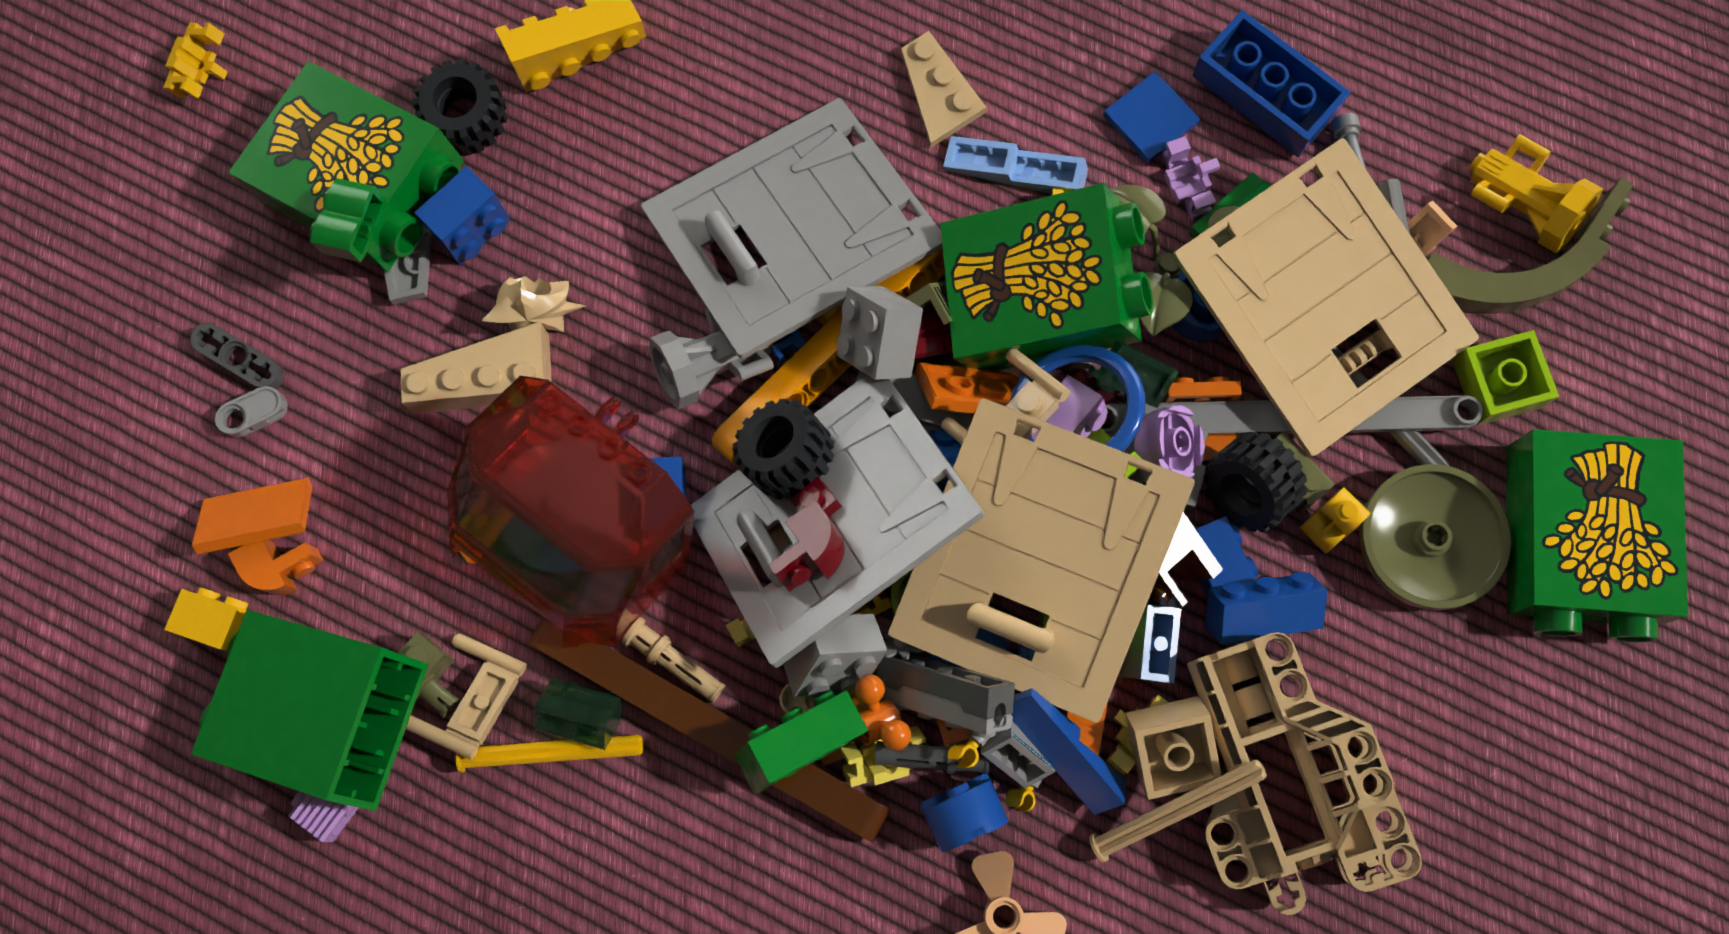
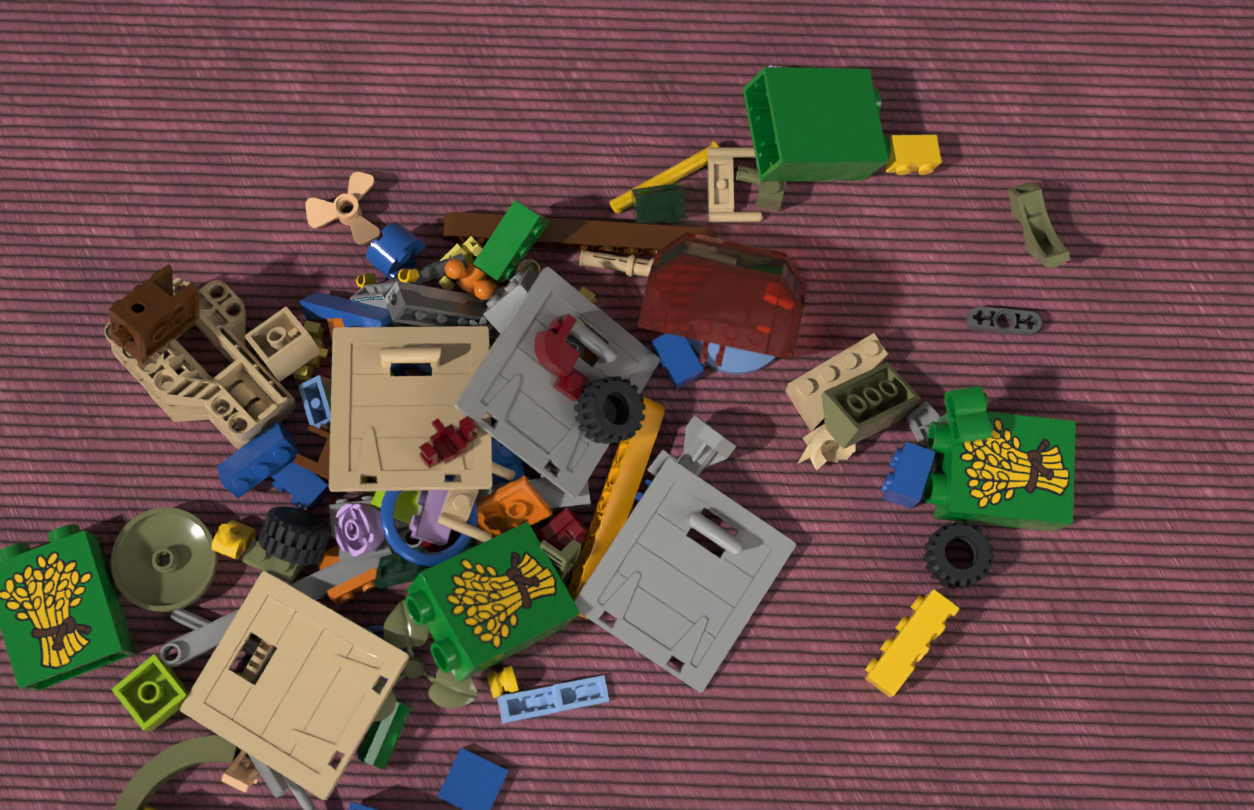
camera: 150 degrees right, 0 degrees up
(124, 433) = (1039, 235): none -> olive arch
(191, 63) = (1168, 502): yellow piece -> none
(253, 516) = (926, 225): orange tile -> none
(258, 408) = (969, 295): light grey piece -> none
(267, 571) = (897, 198): orange brick -> none
(460, 307) = (867, 404): none -> olive slope
(879, 332) = (584, 514): light grey brick -> none
(940, 89) = (634, 734): tan wing -> none
(1013, 477) = (447, 442): none -> dark red piece
(1177, 809) = (266, 308): tan axle -> none
(1187, 179) = (426, 746): lavender piece -> none
(1353, 843) = (152, 315): none -> reddish brown torso

